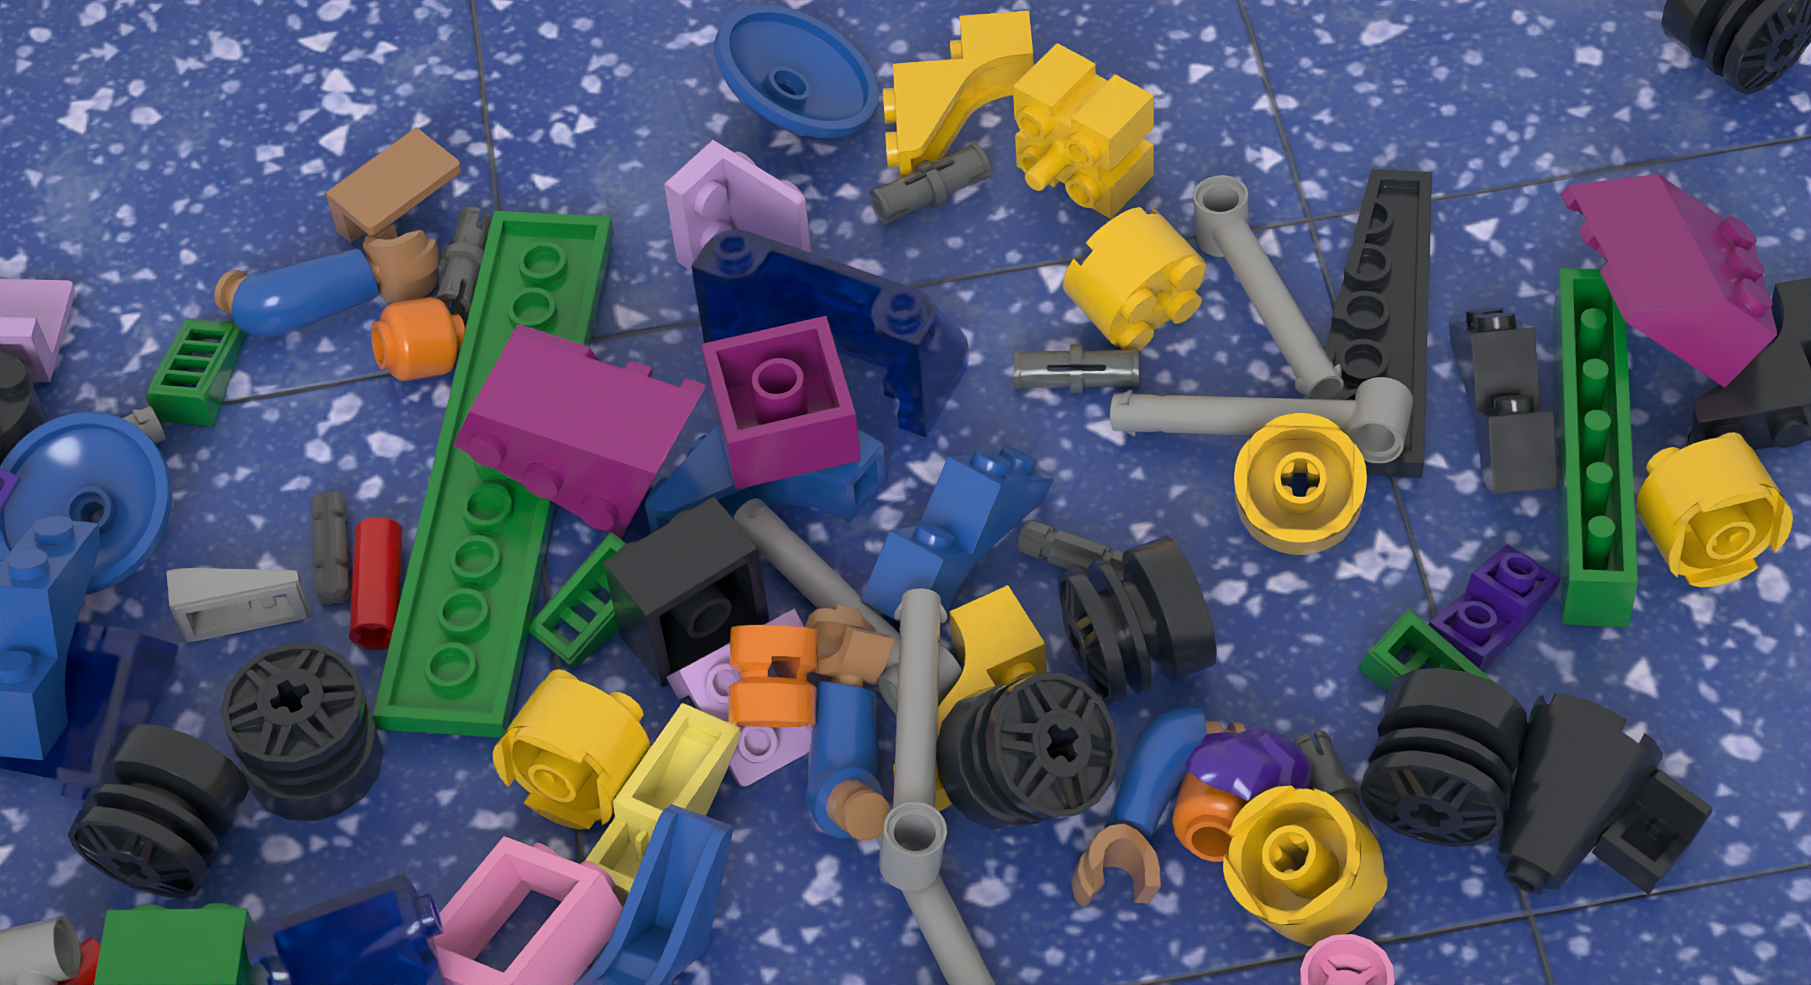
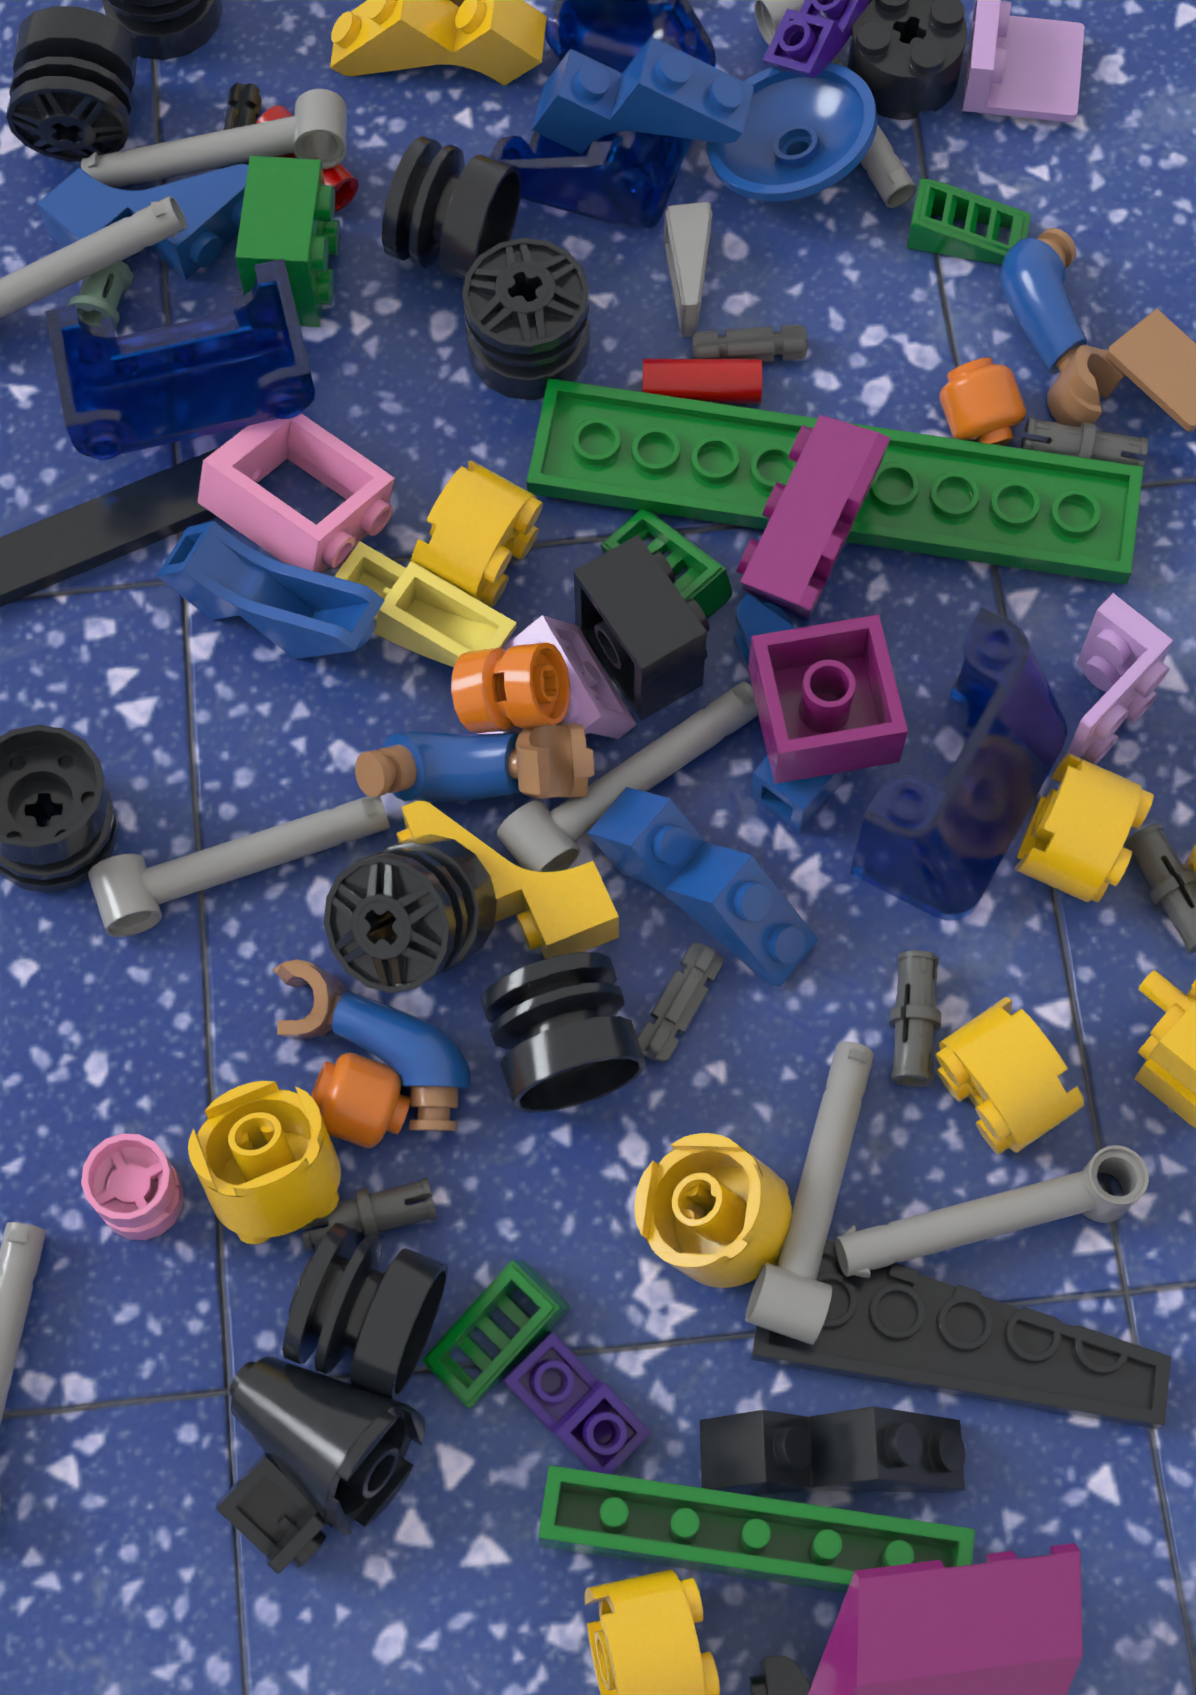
camera: 90 degrees right, 15 degrees up
(889, 225) = (1082, 828): none -> yellow brick
(915, 750) = (439, 815): light grey piece -> none
(1249, 762) = (371, 1118): dark purple arm -> none

